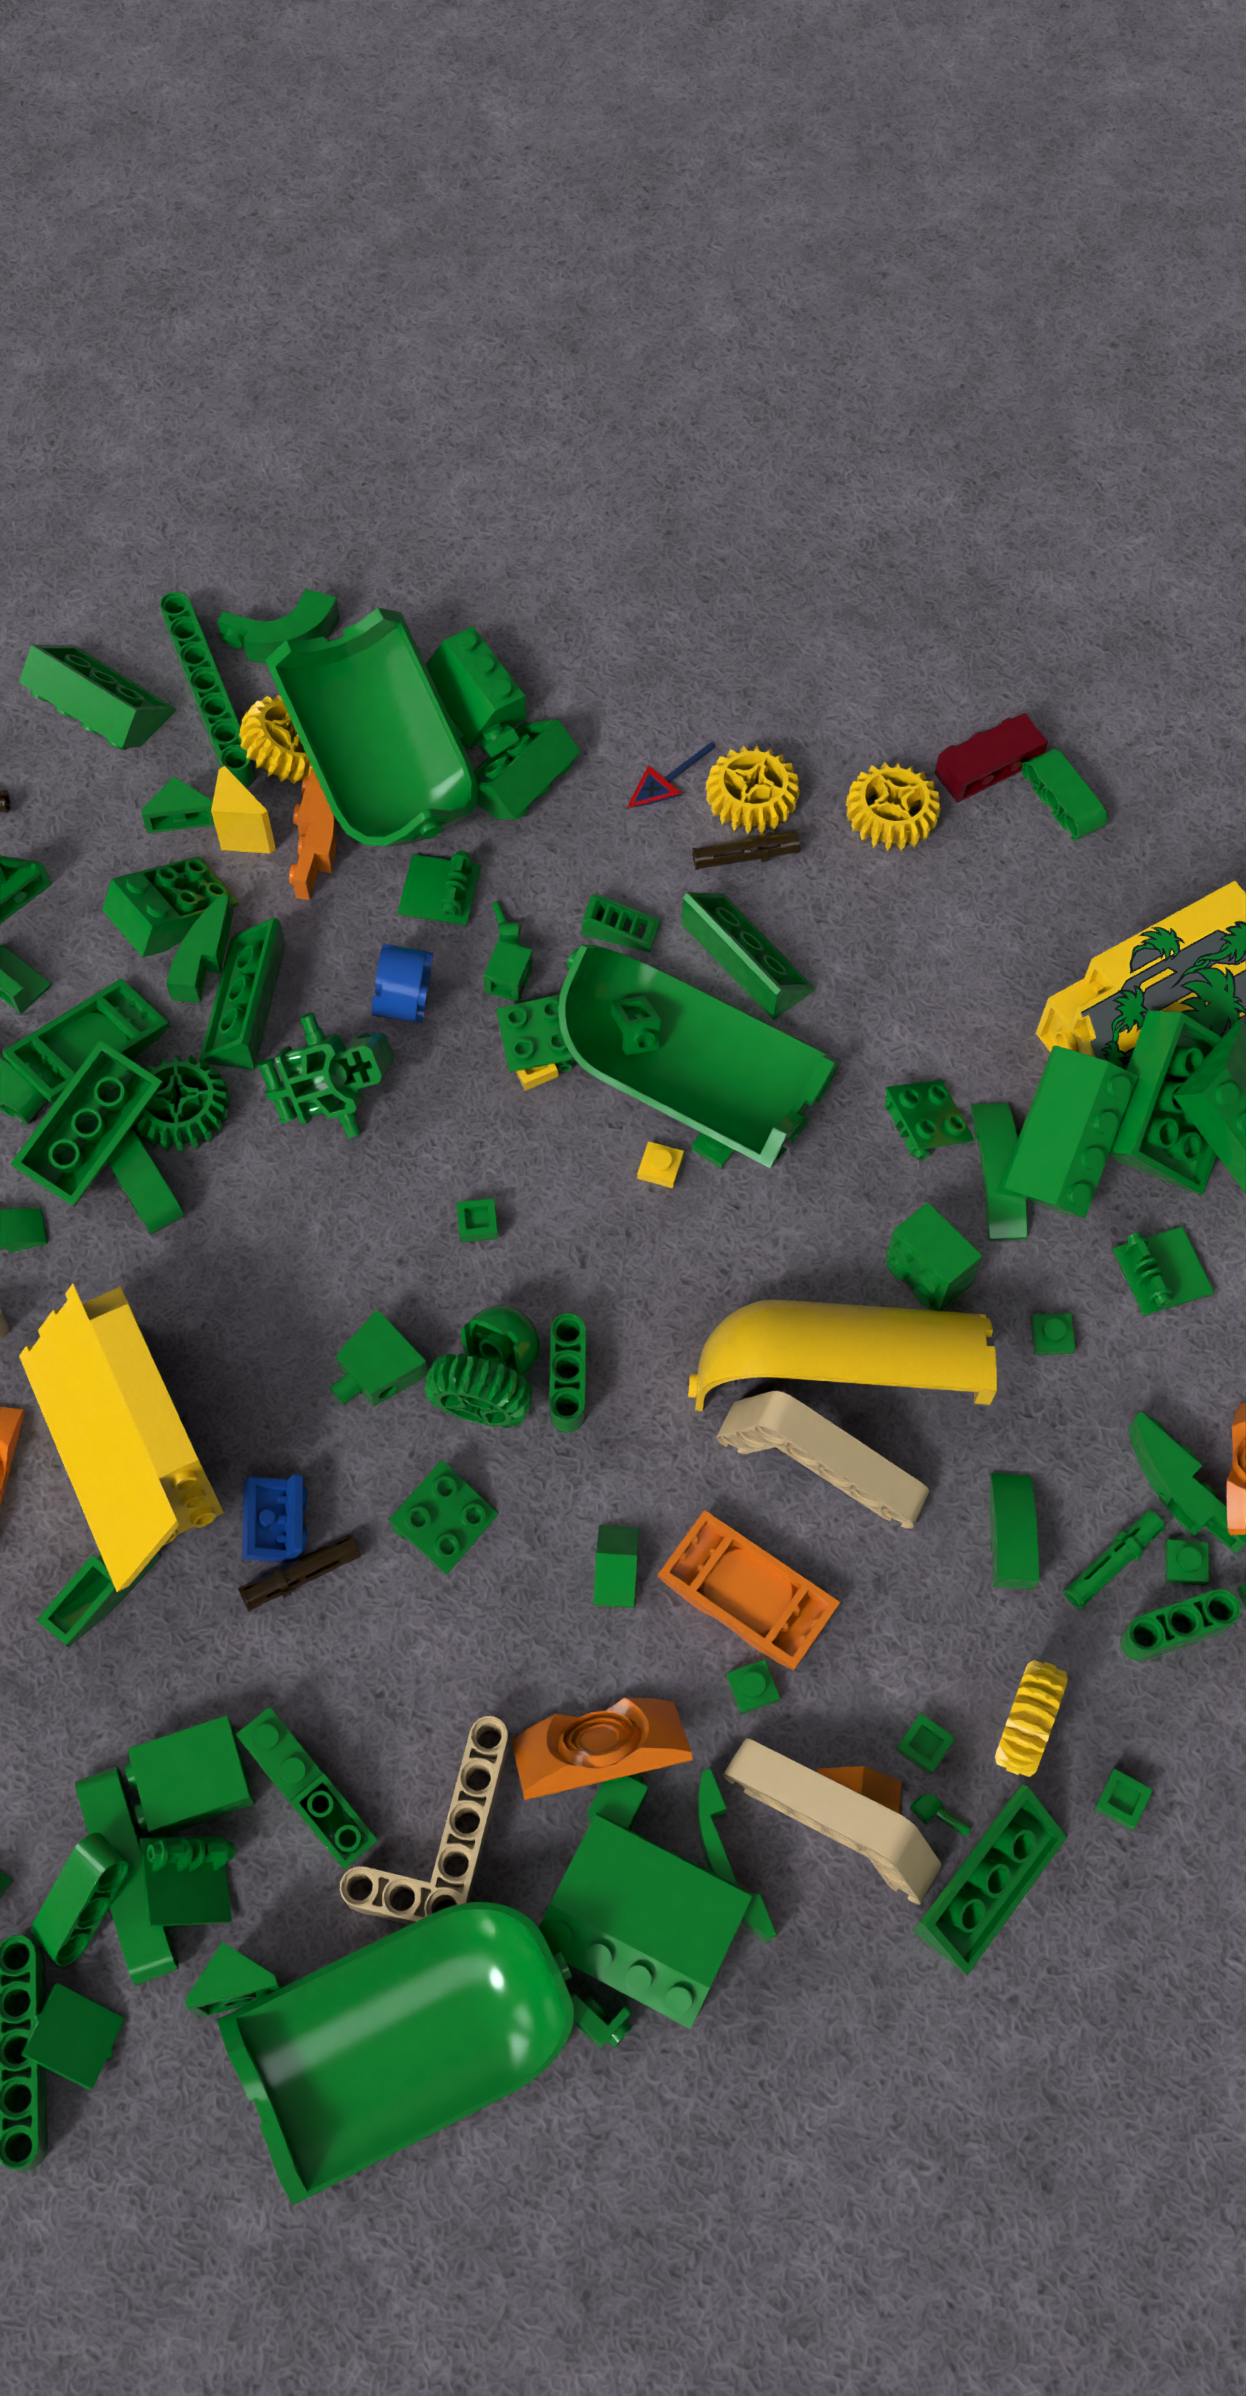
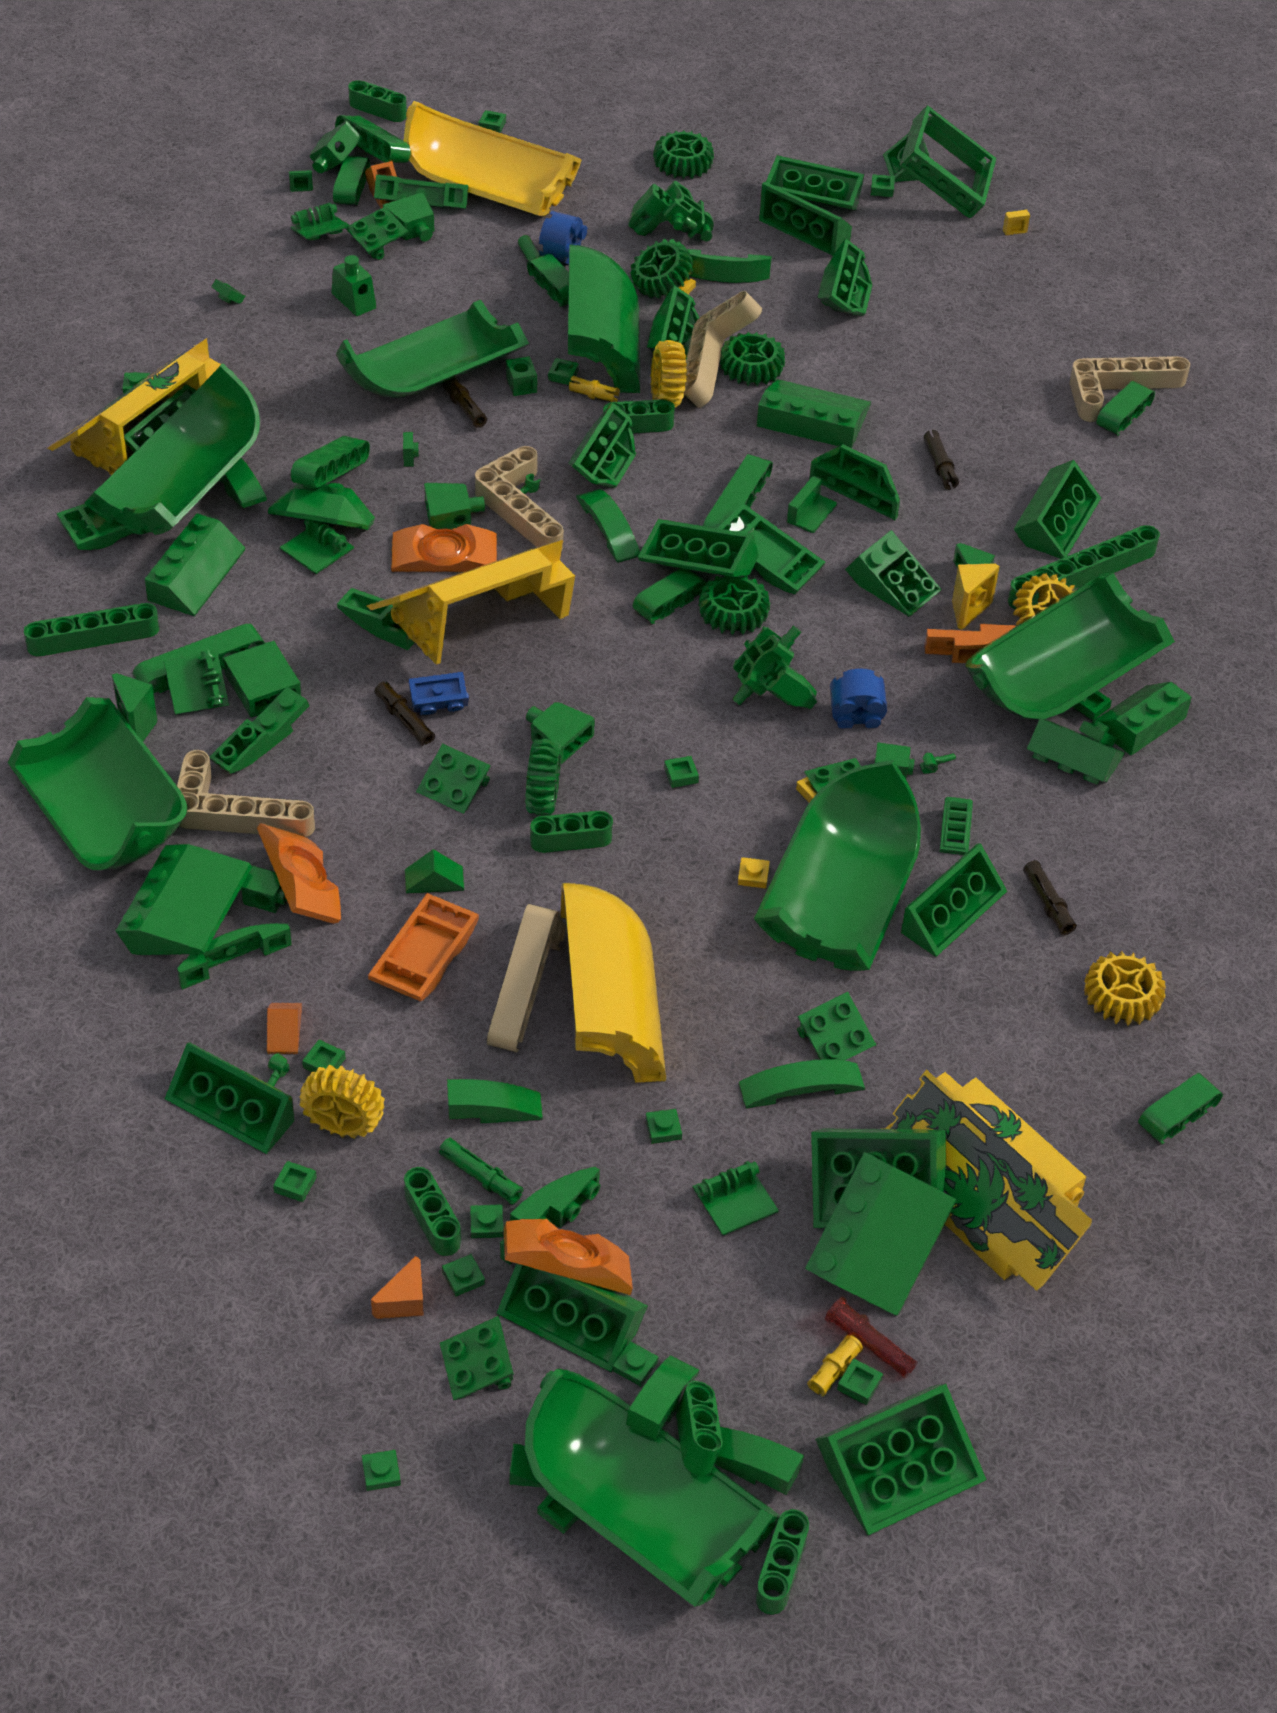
camera: 80 degrees right, 15 degrees down
(73, 2036) = (100, 648): green piece -> none
(79, 1899) = (179, 632): green beam -> none
(201, 952) = (859, 597): green slope -> none
(244, 997) = (833, 629): green slope -> none
(311, 618) = (1144, 596): green arch -> none
(440, 888) = (954, 721): green hinge -> none
(502, 1337) = (587, 791): green cylinder -> none
(589, 2019) = (121, 891): green bracket -> none
(638, 1024) = (863, 835): green bracket -> none
(655, 788) = (1095, 840): piece -> none
(748, 774) = (1126, 897): yellow gear -> none
(752, 1687) = (355, 961): green plate -> none
(839, 1813) = (253, 996): tan beam -> none
(932, 1258) = (702, 1028): green brick -> none
(989, 757) = (1198, 1050): dark red brick -> none
(1069, 1132) = (828, 1098): green slope -> none

